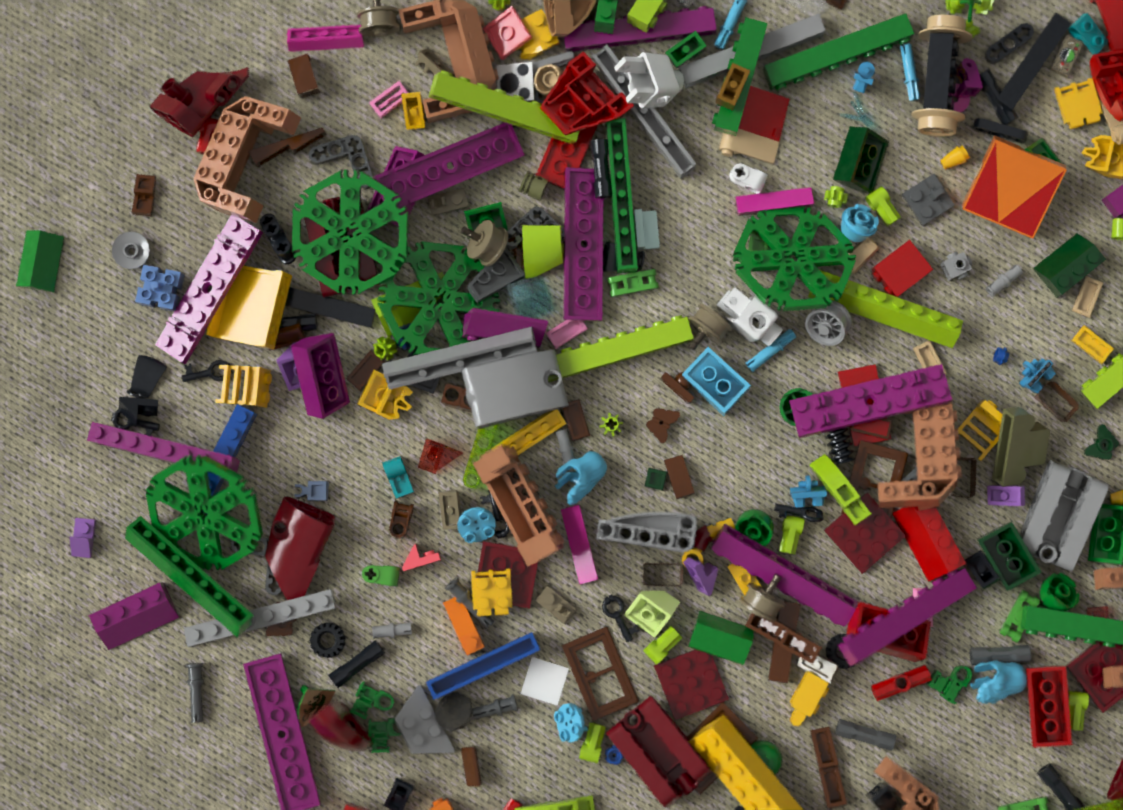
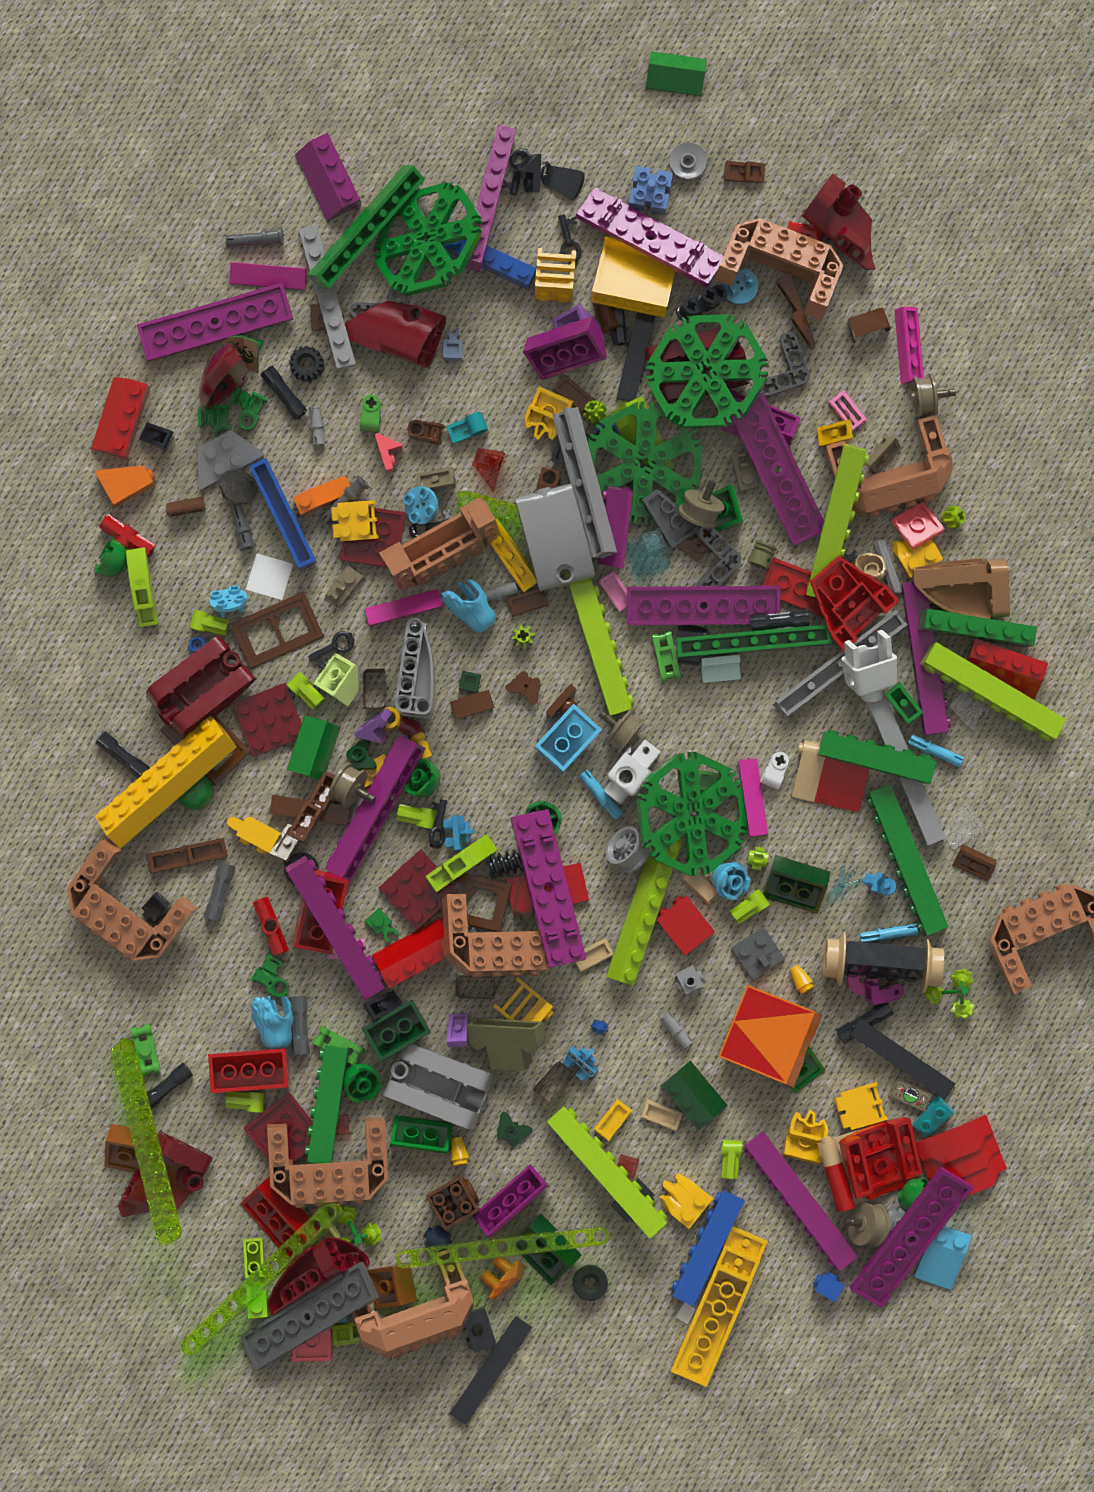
camera: 90 degrees right, 0 degrees up
(83, 538) = (403, 125): medium lavender slope -> none
(234, 679) = (267, 275): none -> dark pink slope
(262, 191) = (748, 282): none -> medium azure plate
(516, 79) = (868, 535): sticker -> none
(541, 248) = (697, 562): lime slope -> none
(732, 86) = (862, 745): pearl gold brick -> none
(736, 587) = (361, 757): none -> dark green animal
(897, 572) = (379, 923): none -> green plate
(993, 60) = (926, 1051): black beam -> none
(1000, 130) = (830, 1025): black beam -> none

